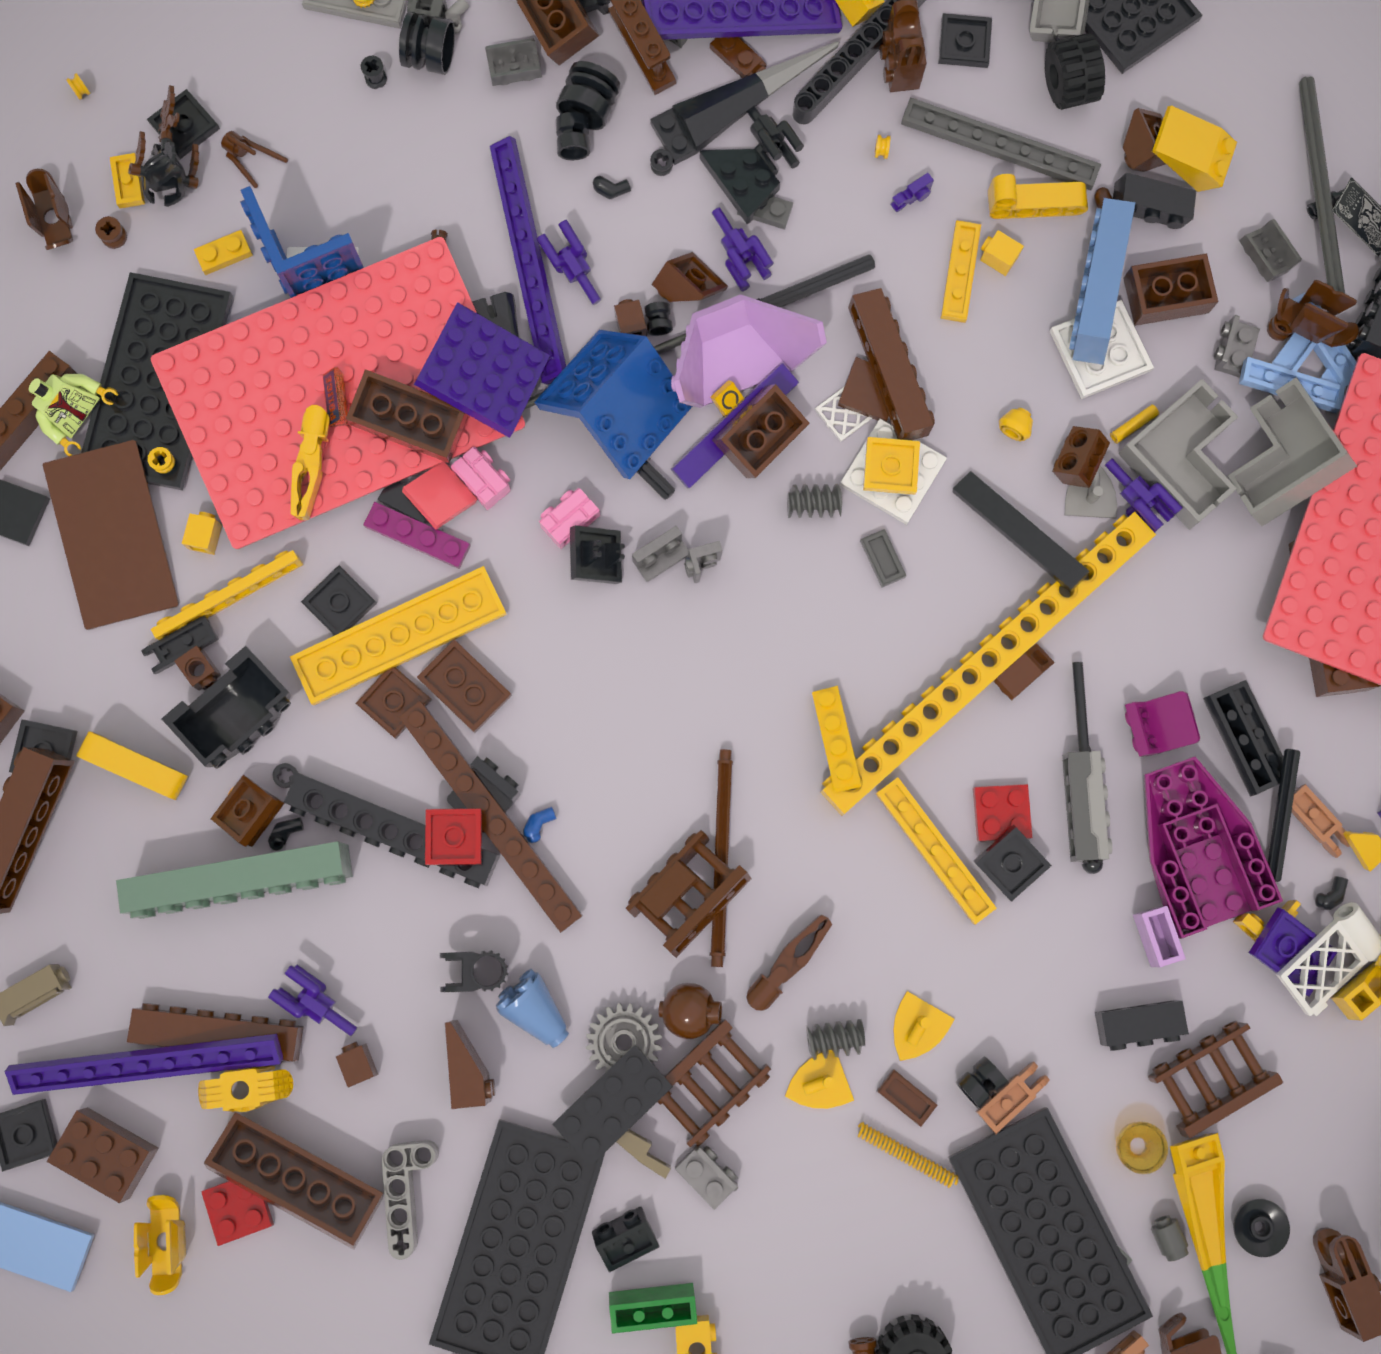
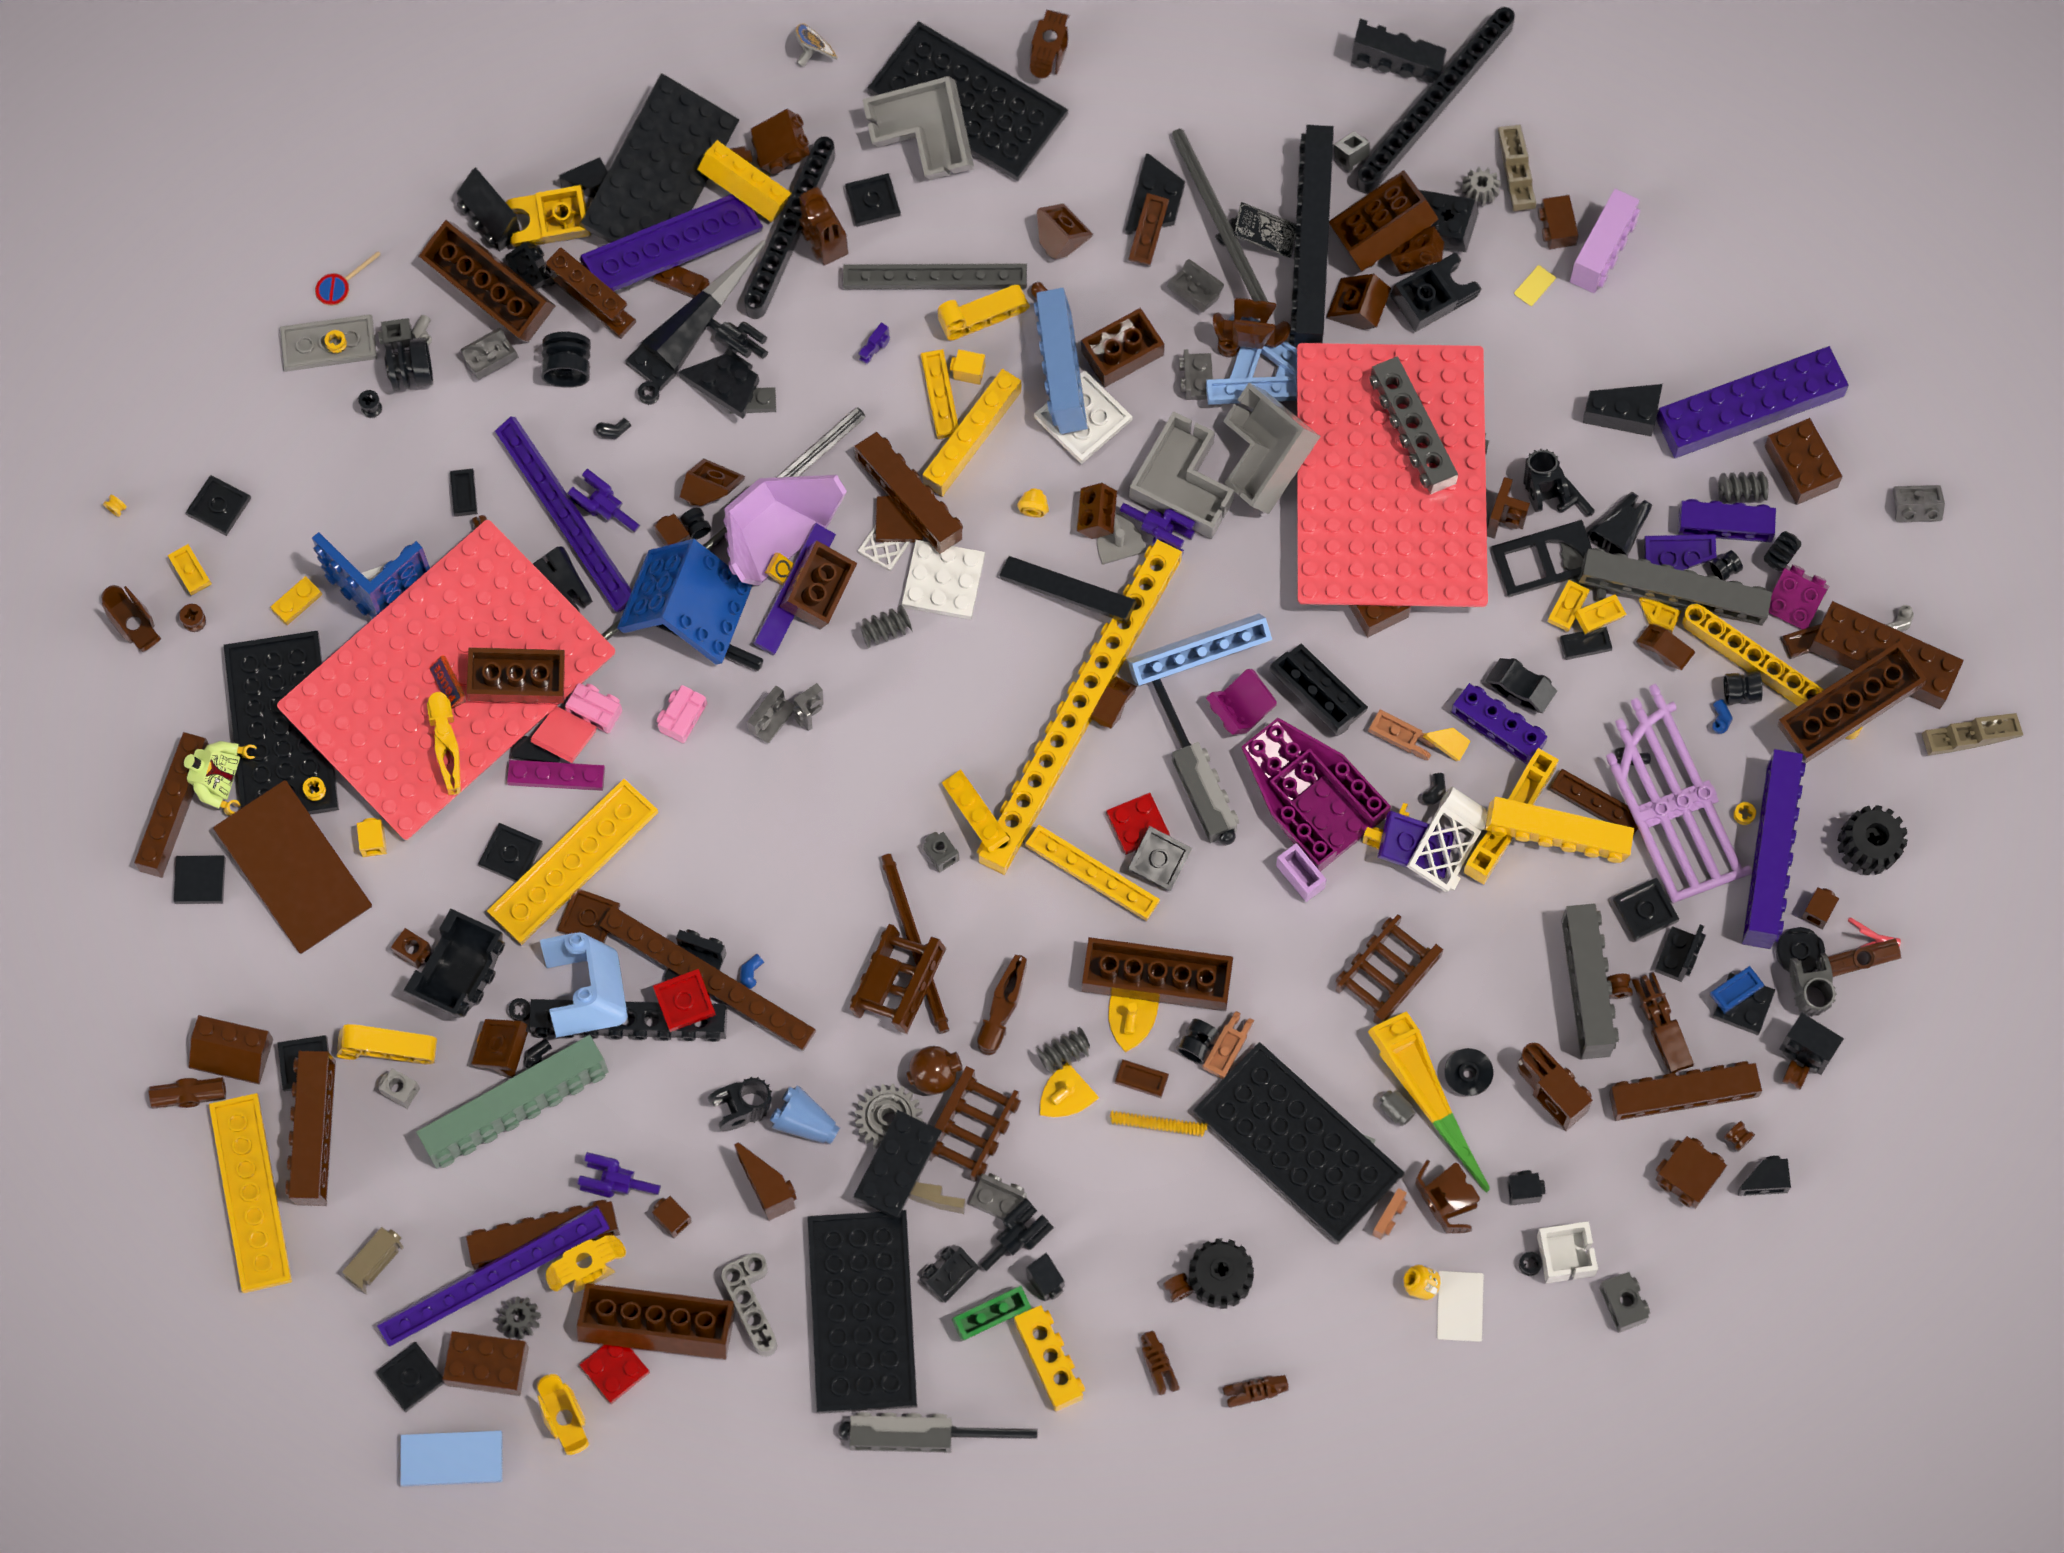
camera: 15 degrees left, 10 degrees down
(137, 821) = (404, 1096): none -> light grey brick
(148, 1115) = (528, 1312): none -> dark grey gear
(163, 169) = (220, 543): helmet -> none
(181, 641) = (386, 934): black hinge -> none
(235, 591) = (419, 874): yellow plate -> none
(239, 146) = (275, 507): reddish brown plant -> none
(371, 807) = (596, 1005): none -> light blue windscreen
(434, 199) = (463, 492): none -> black tile
(464, 686) = (645, 882): reddish brown plate -> none
(482, 370) = (565, 615): dark purple plate -> none
(572, 135) = (564, 397): black wheel -> none
(596, 554) = (717, 734): black plate -> none
(711, 1226) = (1017, 1234): none -> black plant
(724, 1289) = (1045, 1278): none -> black slope
(741, 251) = (746, 443): dark purple plant -> none
(780, 776) = (940, 858): none -> dark grey brick
(882, 146) = (834, 313): yellow bush -> none
(883, 558) = (961, 653): dark grey tile -> none
(891, 465) = (939, 573): yellow plate -> none
(966, 992) = (1157, 974): none -> reddish brown brick
(980, 324) = (972, 432): none -> yellow brick
(1075, 71) = (975, 195): black wheel -> none
(1134, 423) = (1132, 470): yellow piece -> none
(1136, 648) = (1199, 649): none -> light blue brick
(1141, 1024) = (1313, 948): black brick -> none
(1155, 1147) = (1347, 1032): clear yellow piece -> none
(1156, 200) = (1084, 278): black brick -> none
(1194, 149) = (1099, 224): yellow slope -> none
(1243, 172) = (1148, 229): none -> reddish brown plate
(1262, 140) = (1159, 181): none -> black wing
(1283, 812) = (1368, 738): black axle -> none

